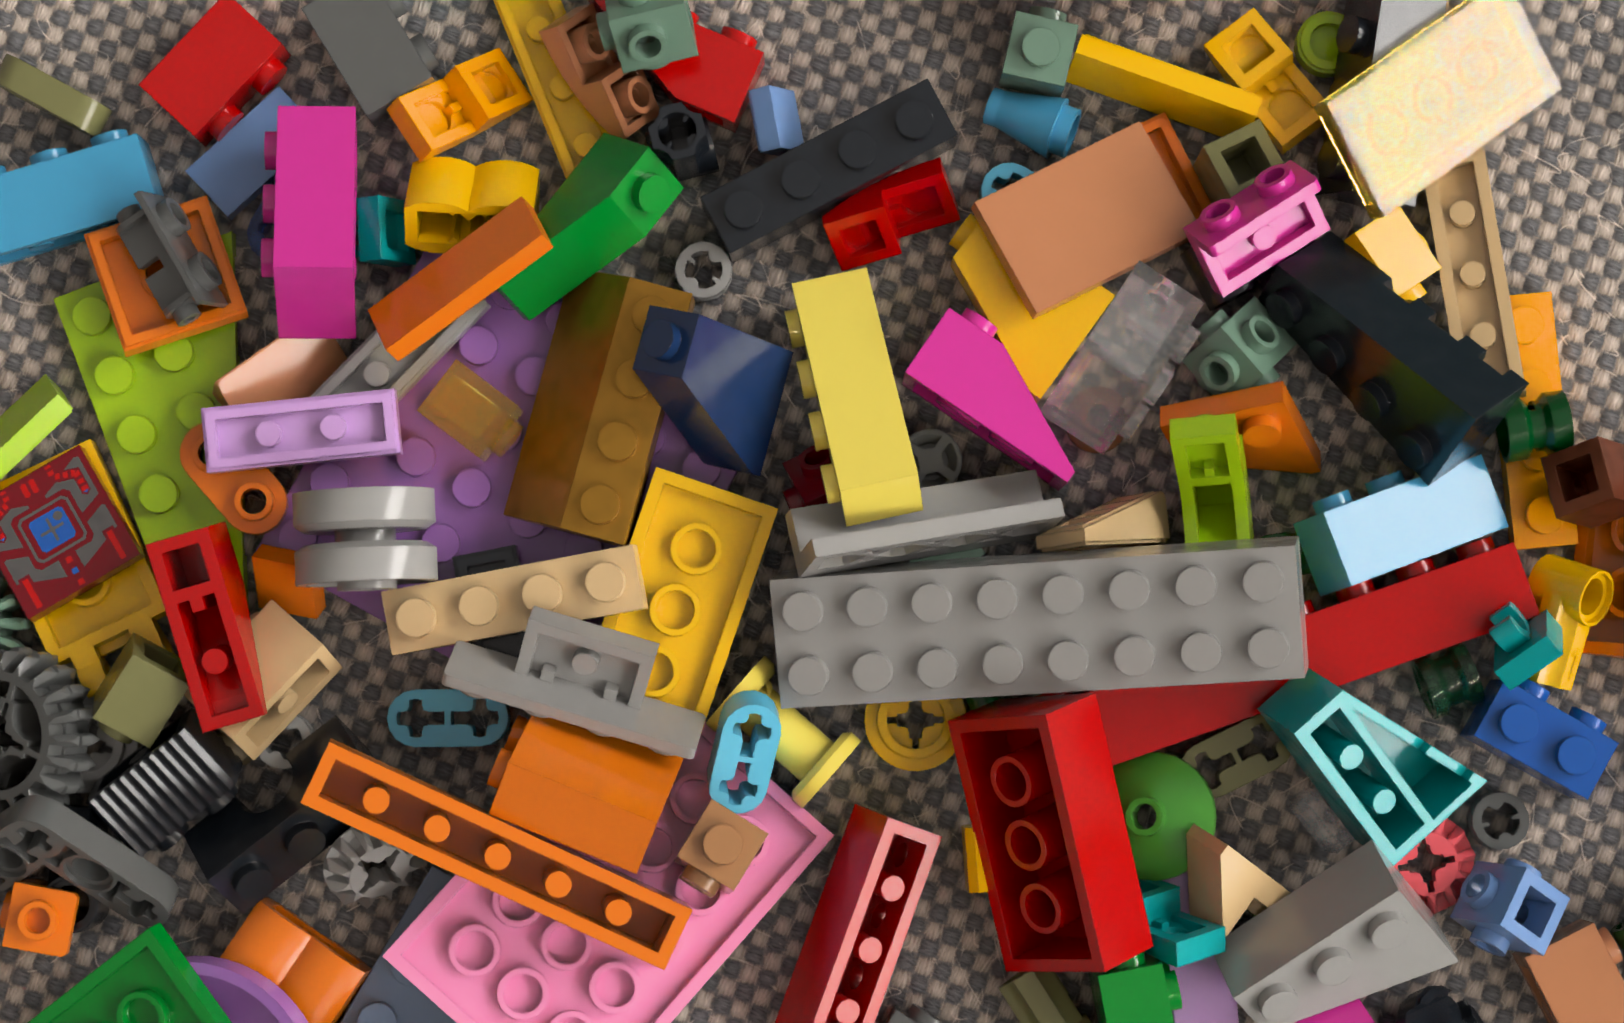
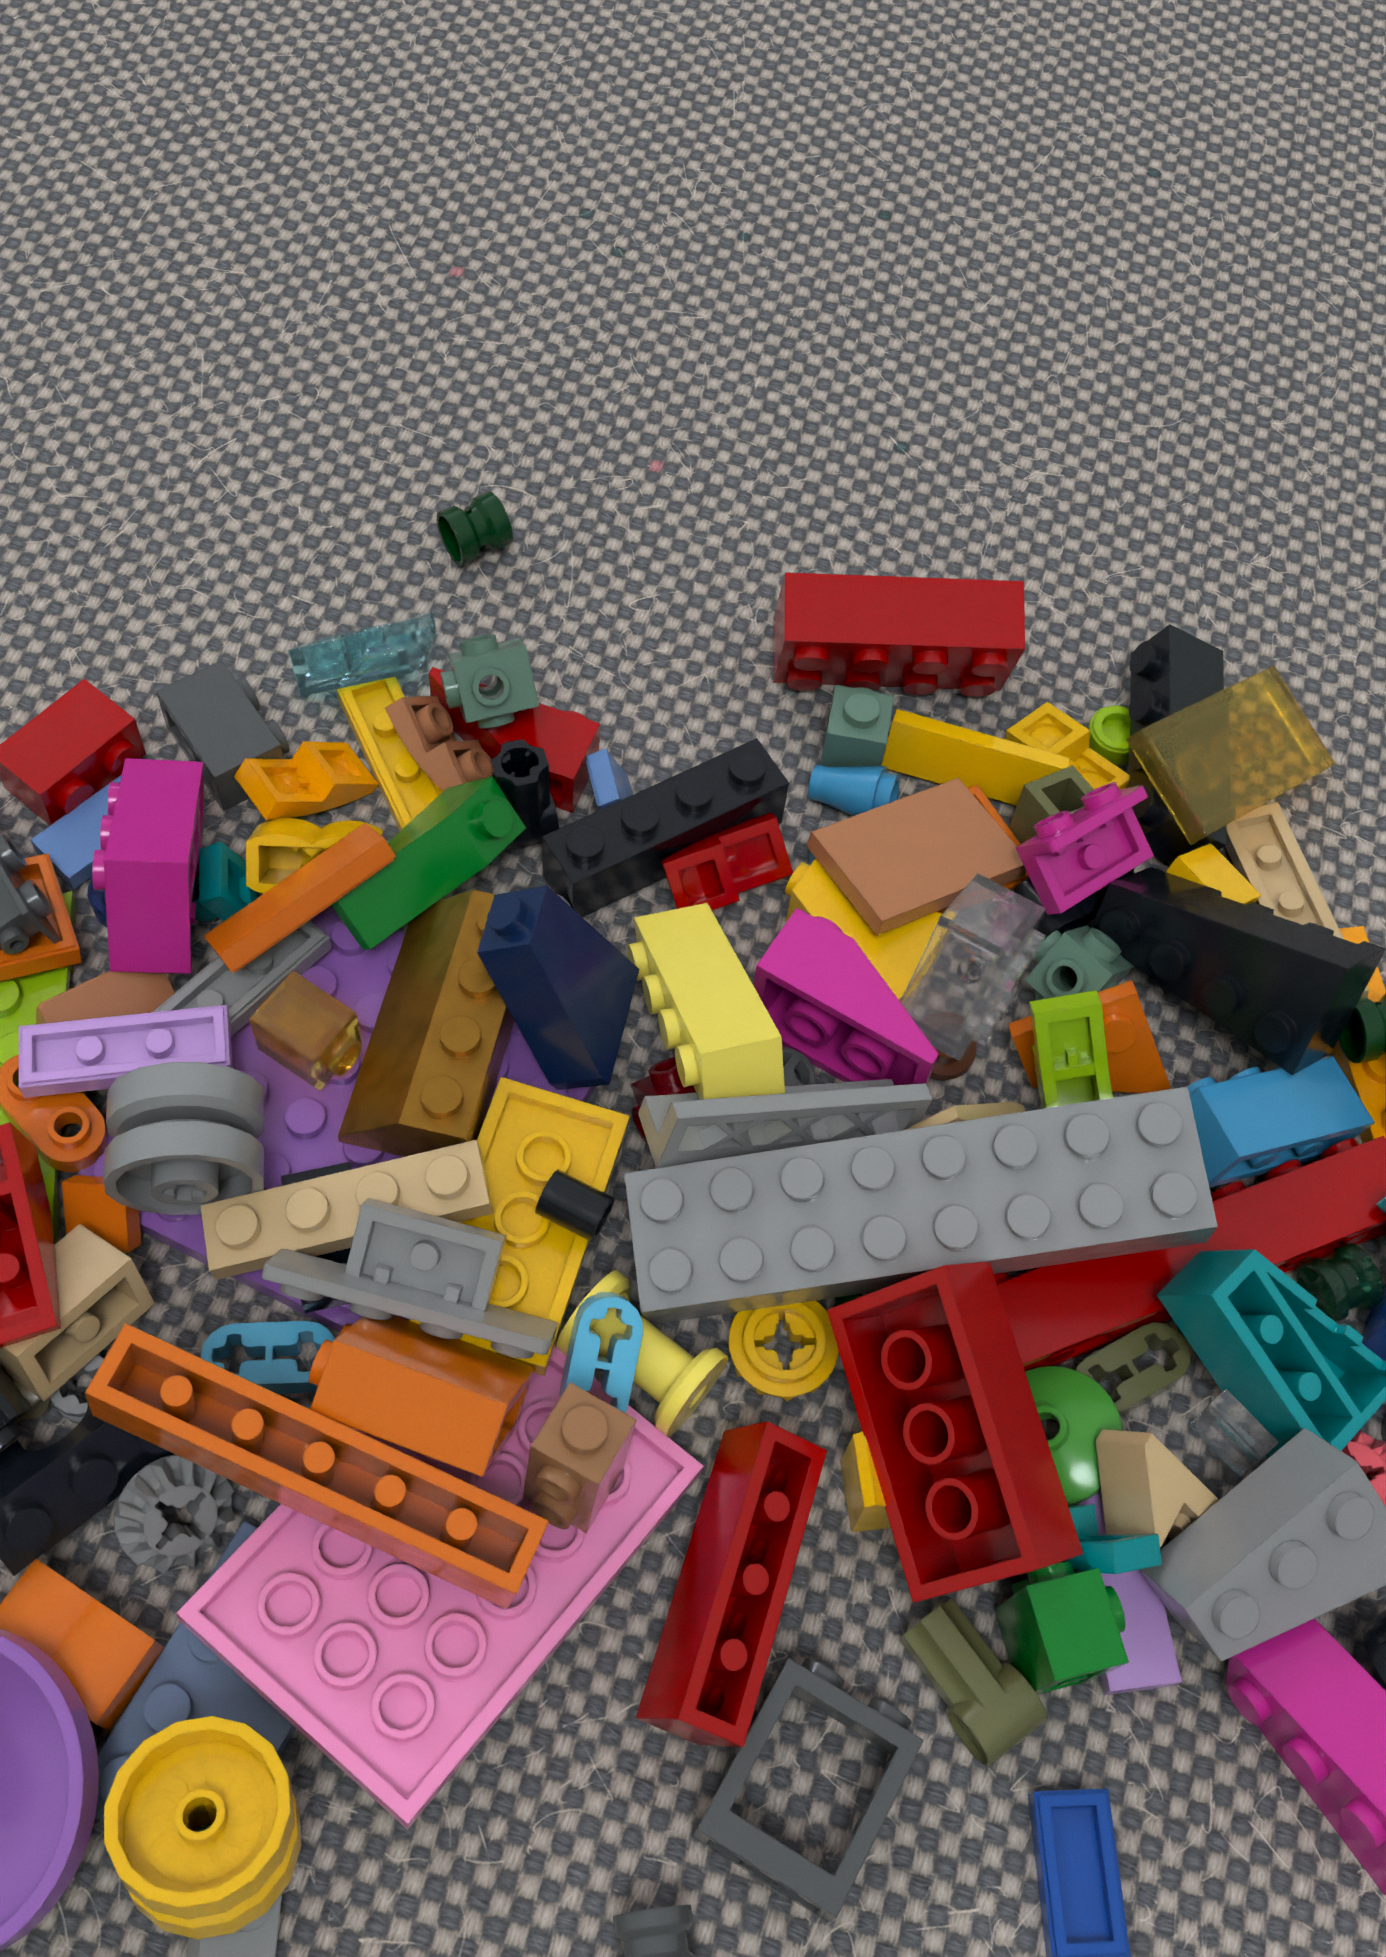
camera: 10 degrees left, 25 degrees down
(723, 607) = (574, 1205): none -> black hinge

